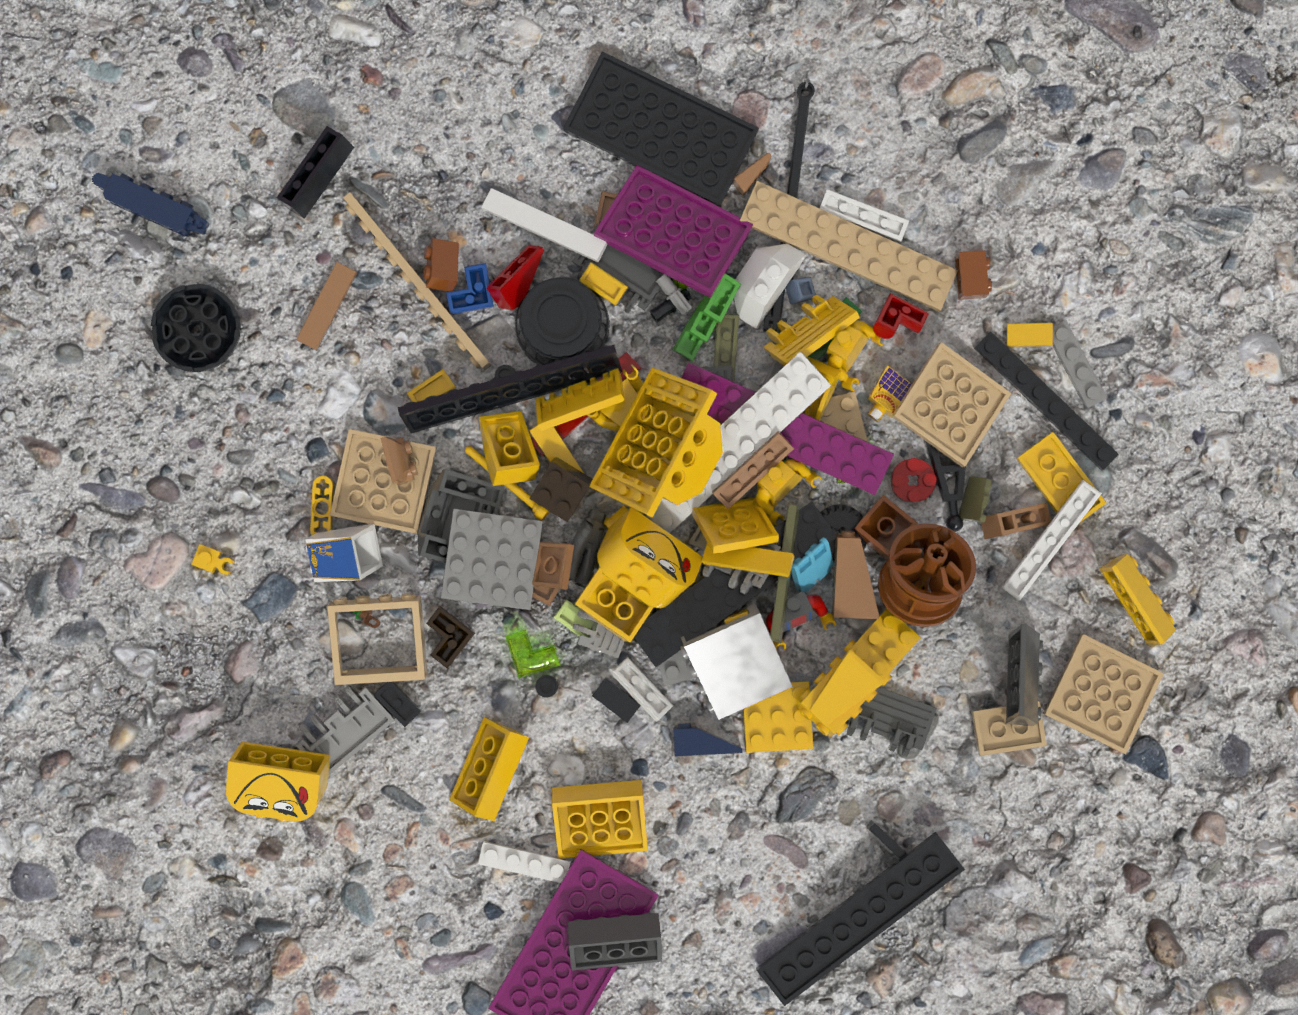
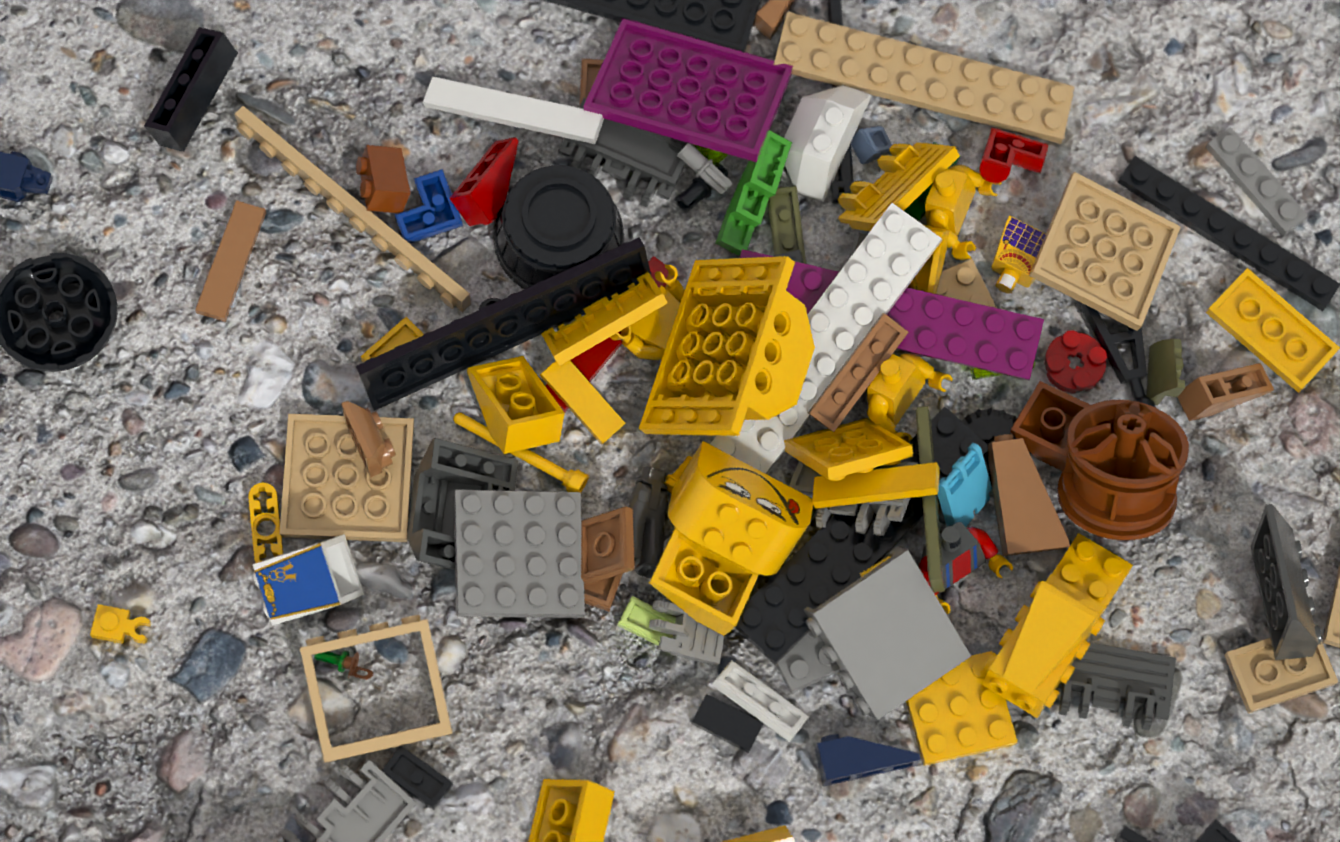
camera: 15 degrees left, 15 degrees down
(454, 633) = (483, 668): dark brown brick -> none
(528, 660) = (594, 690): clear neon green brick -> none
(546, 686) = (625, 720): black plate -> none
(561, 489) = (599, 444): dark brown brick -> none
(603, 283) = (609, 170): yellow tile -> none
(865, 216) = (938, 36): white plate -> none
(973, 275) = (1095, 89): dark orange brick -> none
(1030, 335) = (1187, 152): yellow tile -> none
(1051, 540) = (1277, 408): white tile -> none

